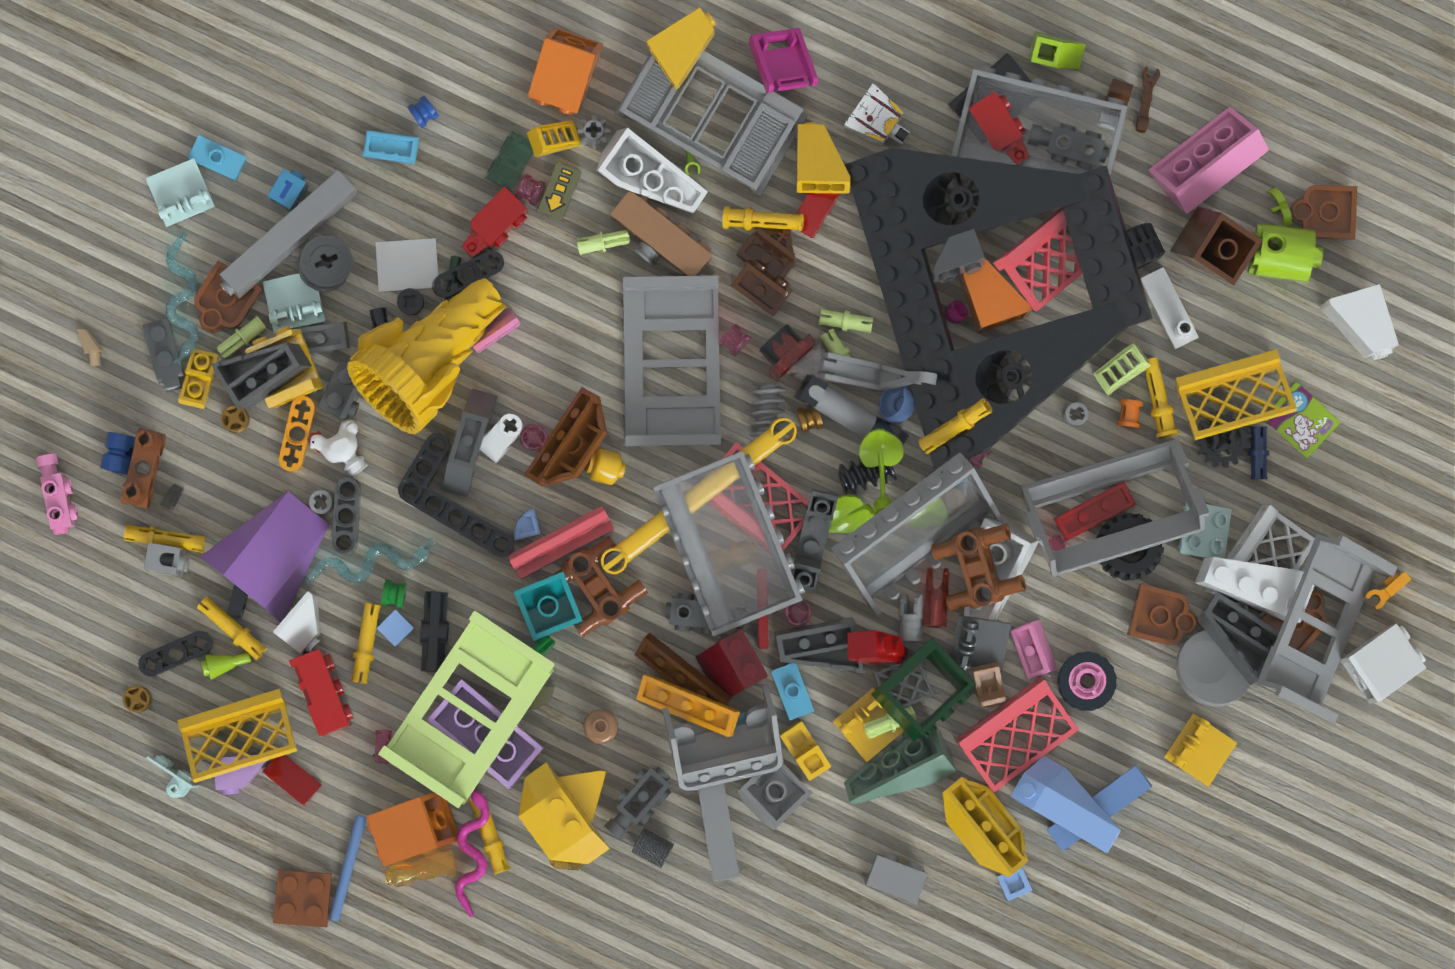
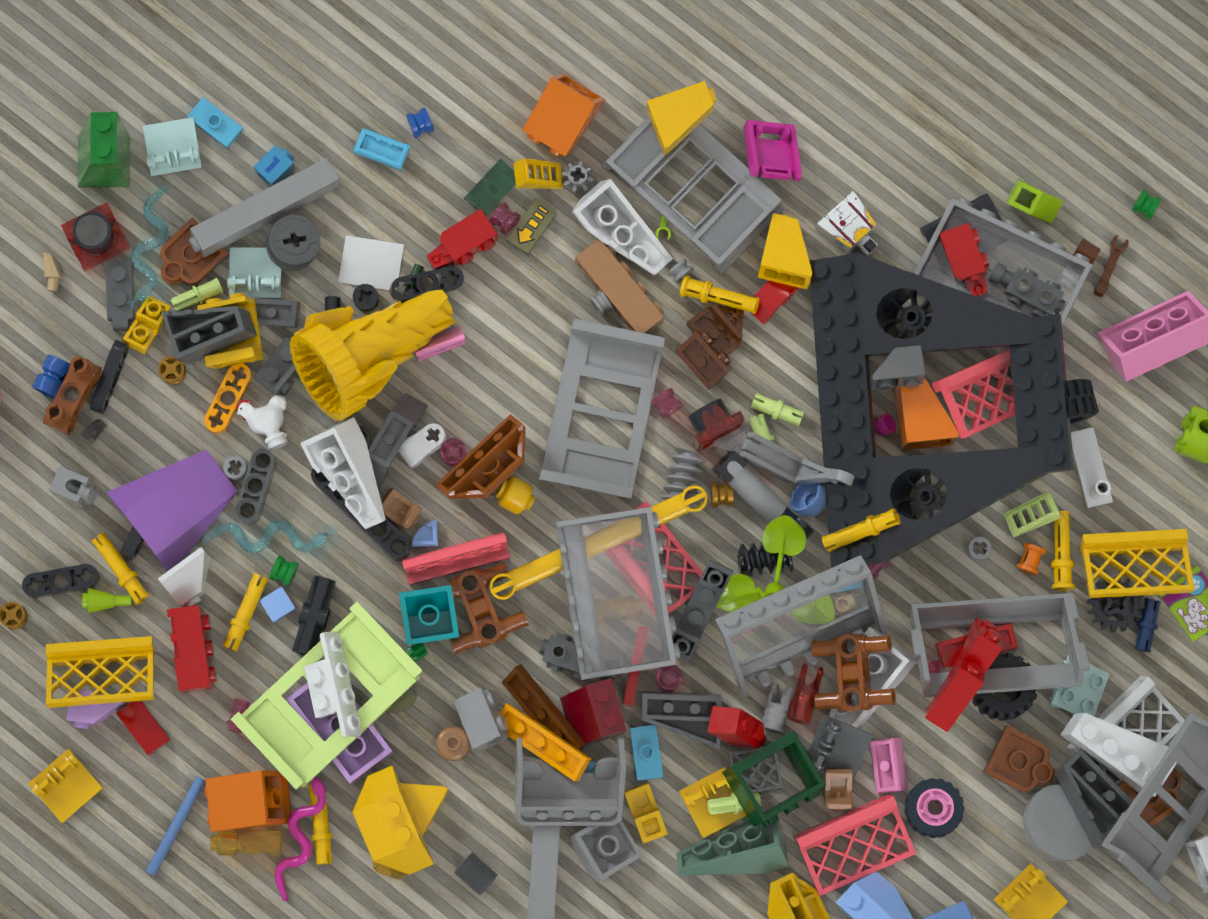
camera: 10 degrees right, 5 degrees down
(113, 216) = (103, 152): none -> green slope
(124, 300) = (95, 234): none -> piece
(162, 537) = (96, 475): yellow pin -> none
(174, 440) = (109, 377): none -> black beam
(181, 780) = (34, 704): light aqua hinge -> none
(229, 853) = (65, 786): none -> yellow hinge
(302, 898) = (125, 845): dark orange plate -> none
(430, 473) = (346, 463): none -> white wedge
(469, 699) = (331, 686): none -> white bracket
(493, 506) = (400, 509): none -> medium nougat bracket
(602, 241) = (560, 282): yellowish green axle -> none
(623, 695) = (482, 719): none -> light grey brick
(642, 795) = (477, 819): dark grey brick -> none
(718, 202) = (680, 270): none -> light grey bush
(1090, 545) = (966, 675): none -> red arch
(1169, 29) = (1146, 204): none -> green wheel
(1216, 245) = (1149, 416): reddish brown slope -> none

